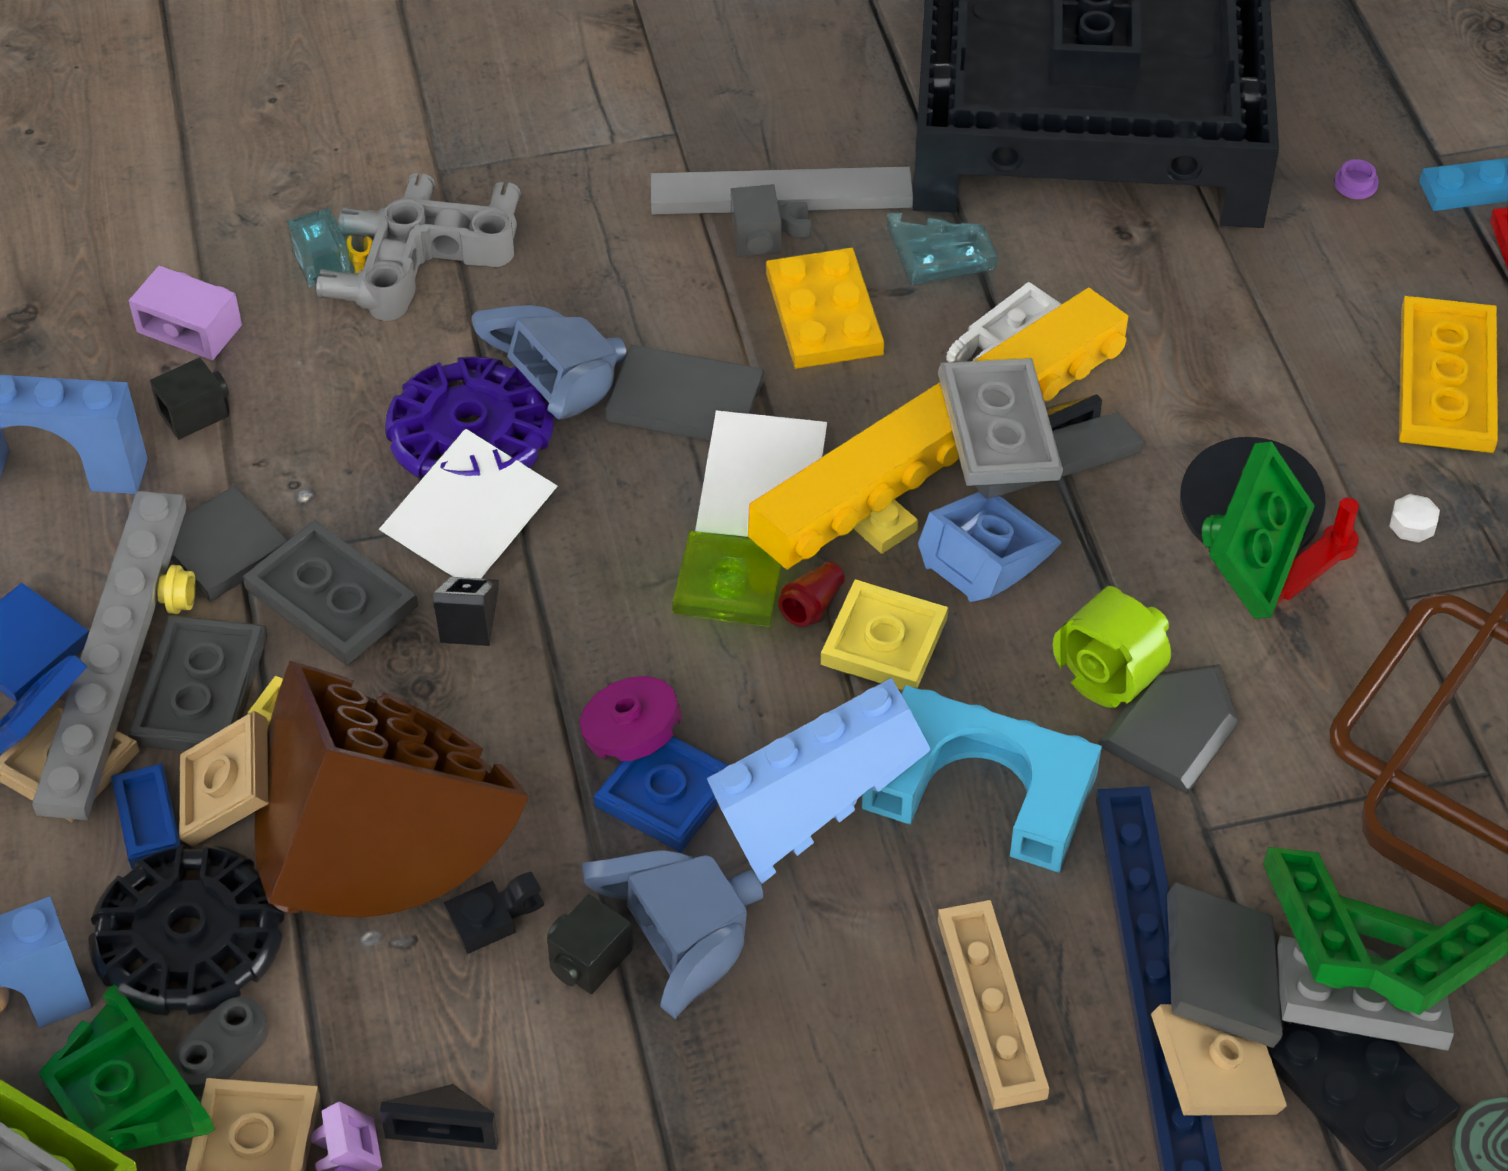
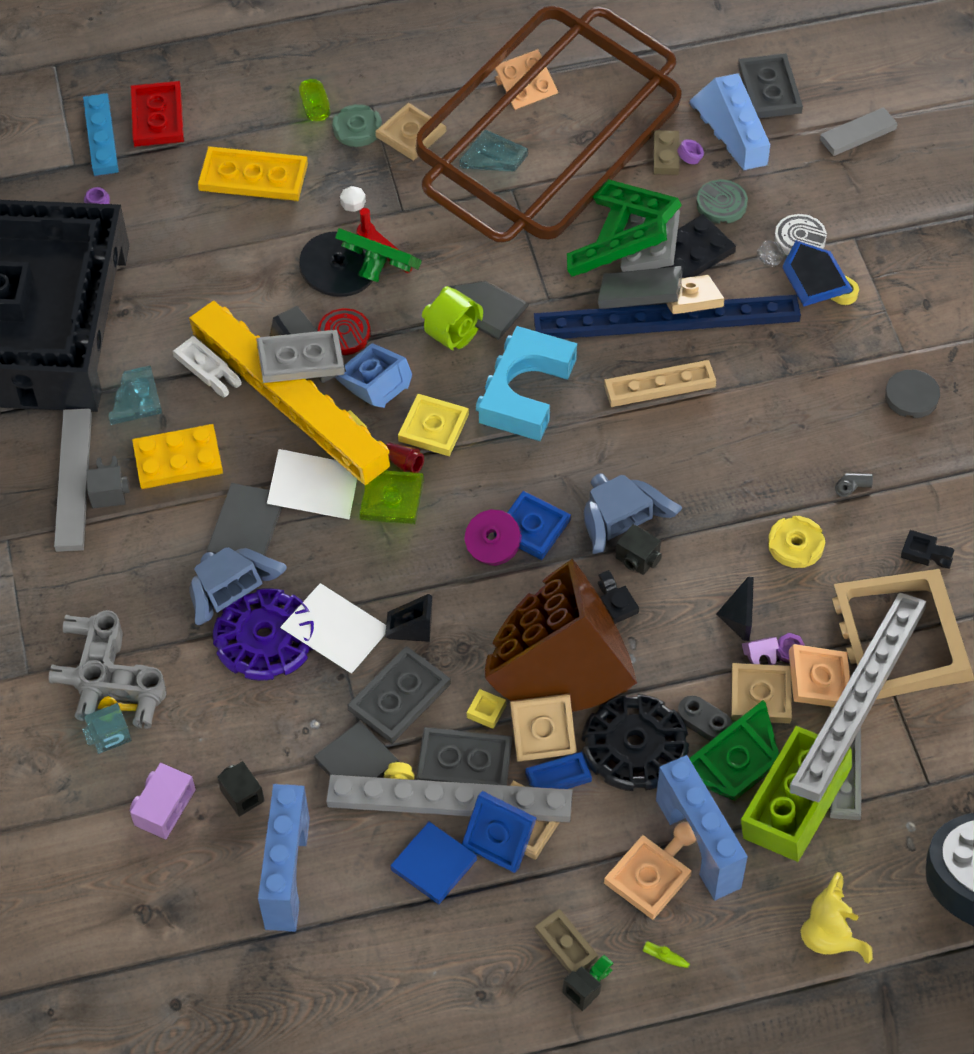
camera: 90 degrees left, 5 degrees up
(816, 774) = (549, 449): light blue wedge -> none
(1097, 511) = (351, 326): none -> tile

